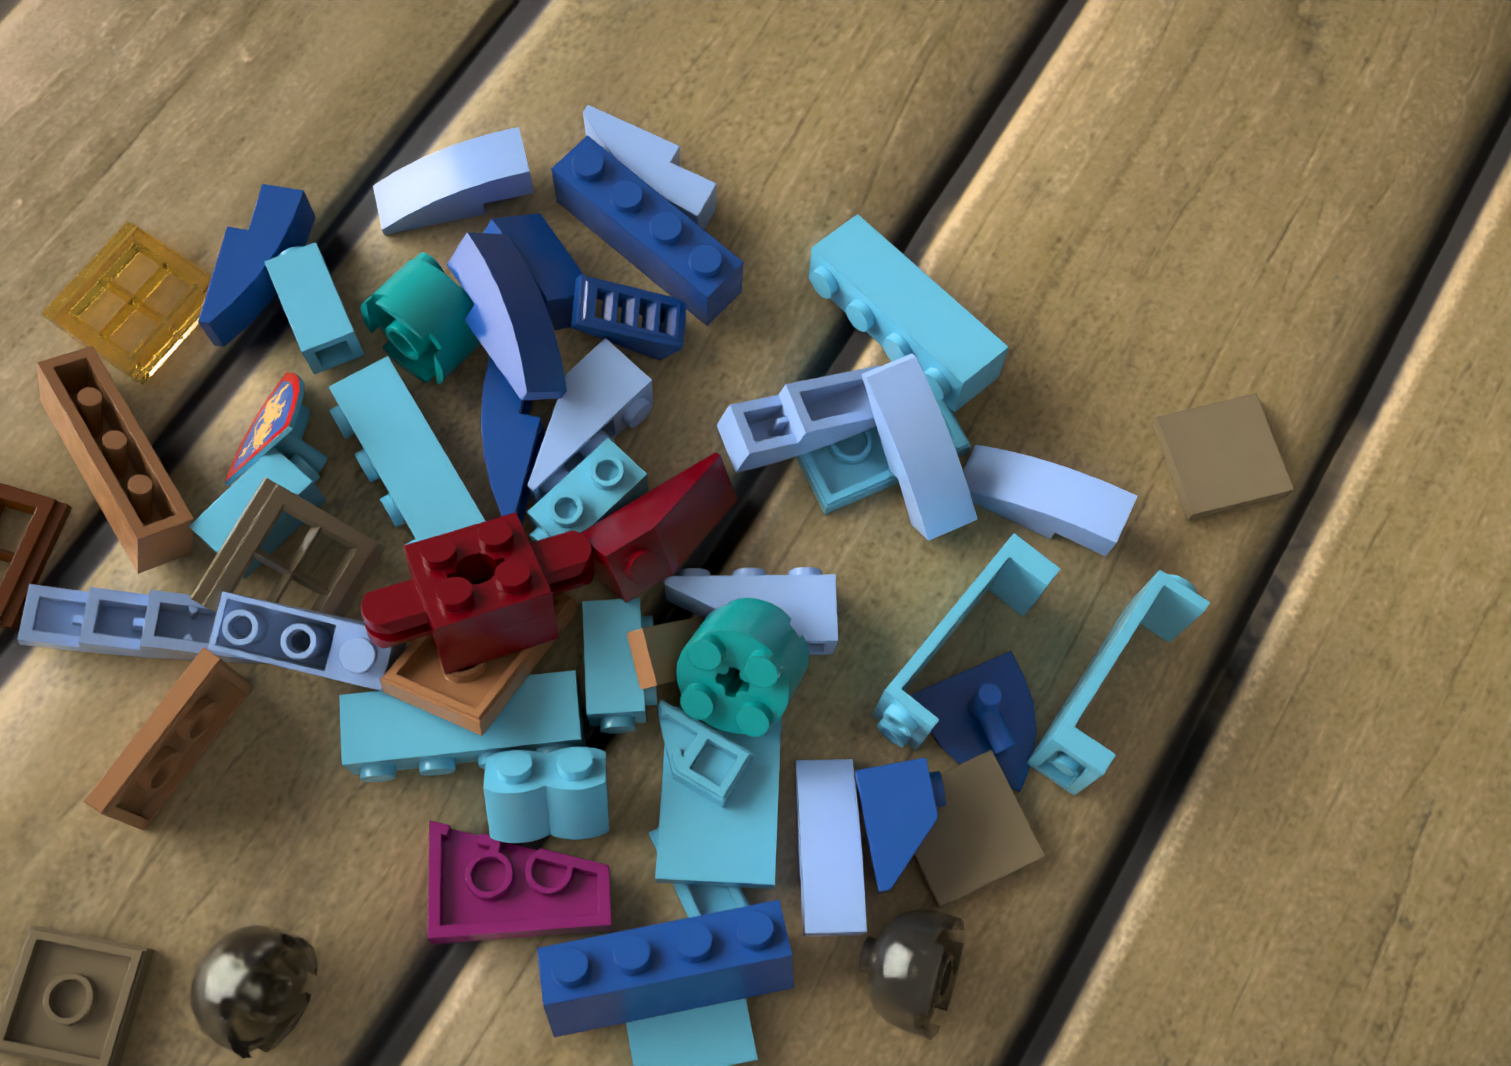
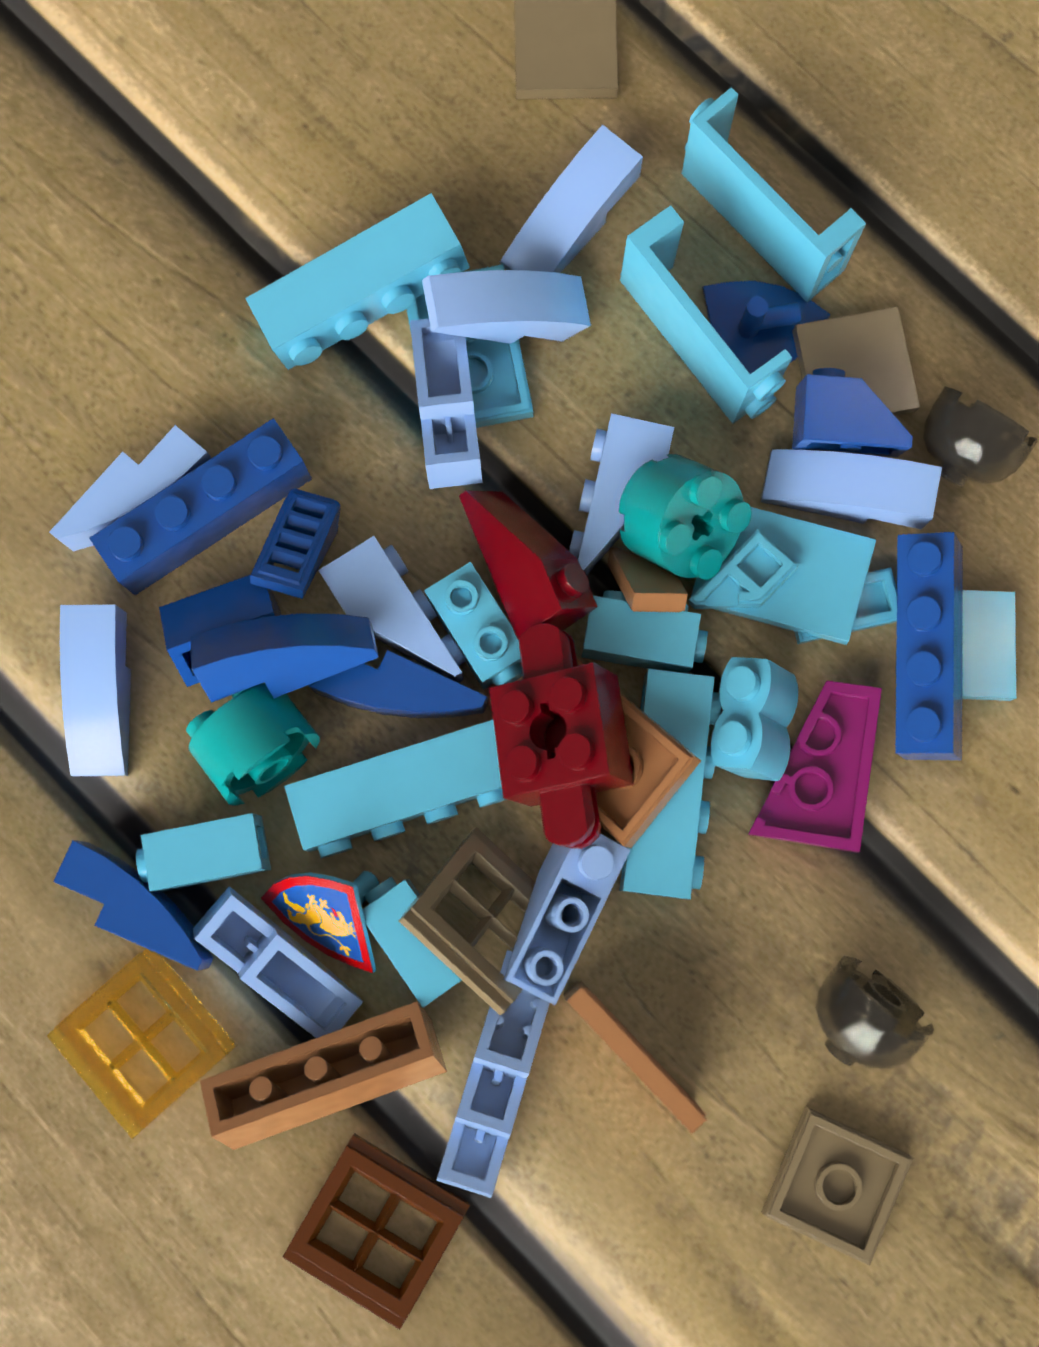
camera: 70 degrees left, 10 degrees up
(219, 397) = (275, 965): none -> light blue slope

